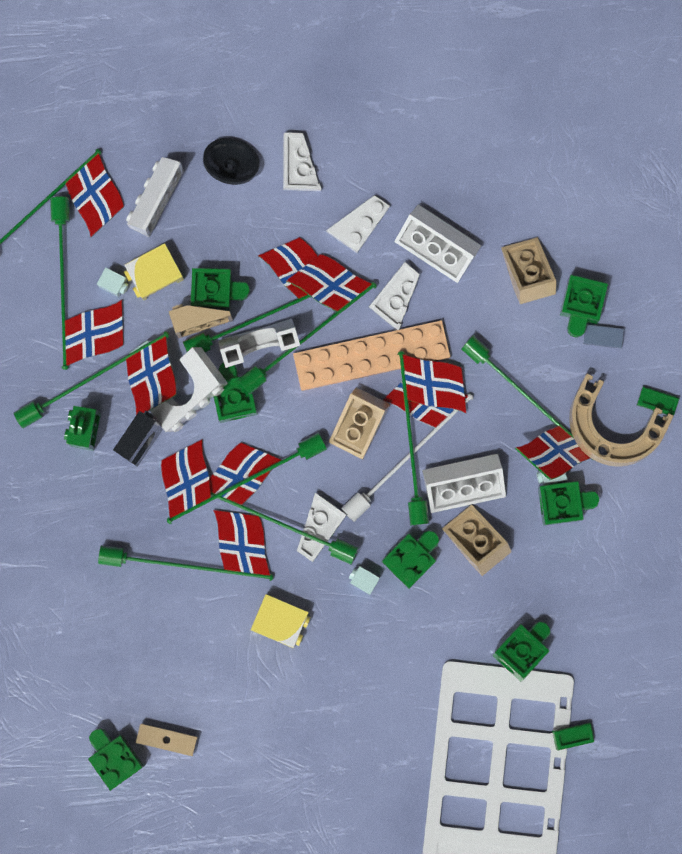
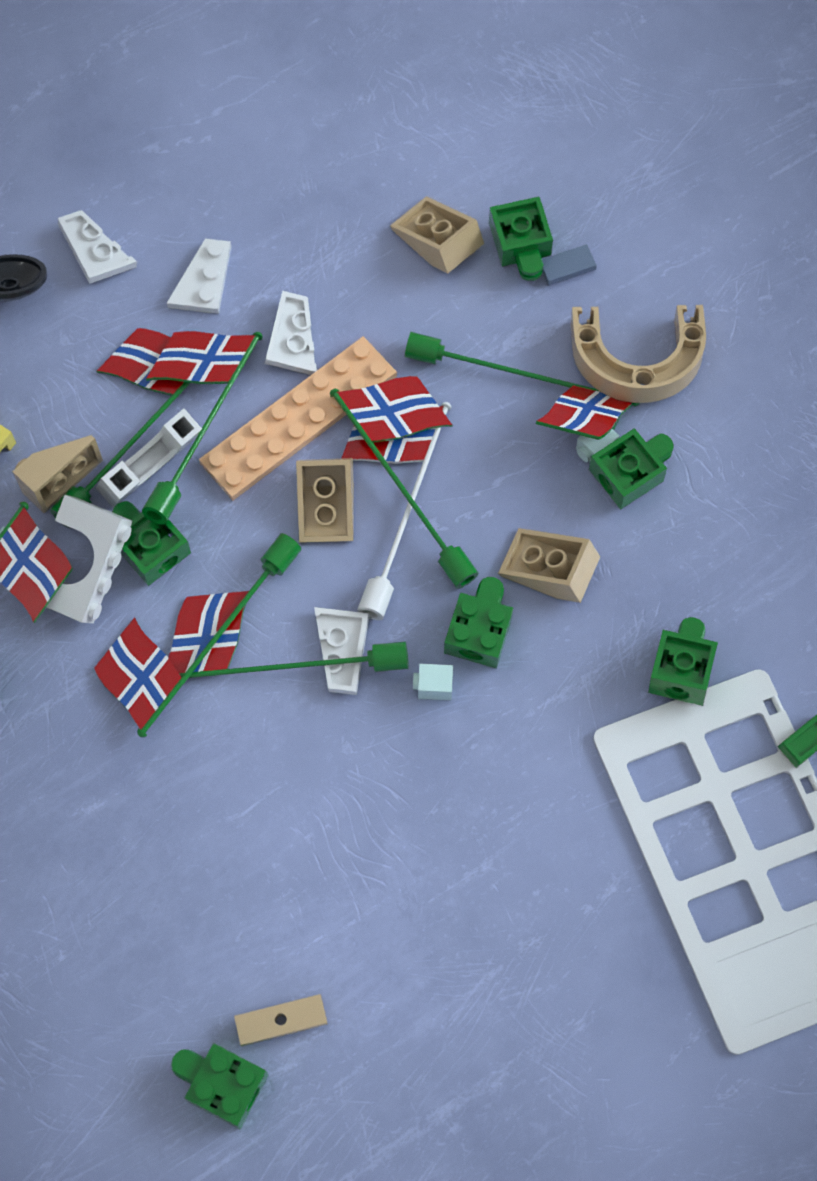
camera: 30 degrees left, 15 degrees down
(138, 437) = (48, 639): black arch -> none
(216, 290) = (60, 422): green brick -> none
(239, 546) = (250, 722): flag -> none
(280, 621) = (353, 785): light yellow panel -> none
(437, 243) = (310, 254): white slope -> none
(464, 483) = (496, 505): white slope -> none
(653, 399) = (664, 305): green tile -> none

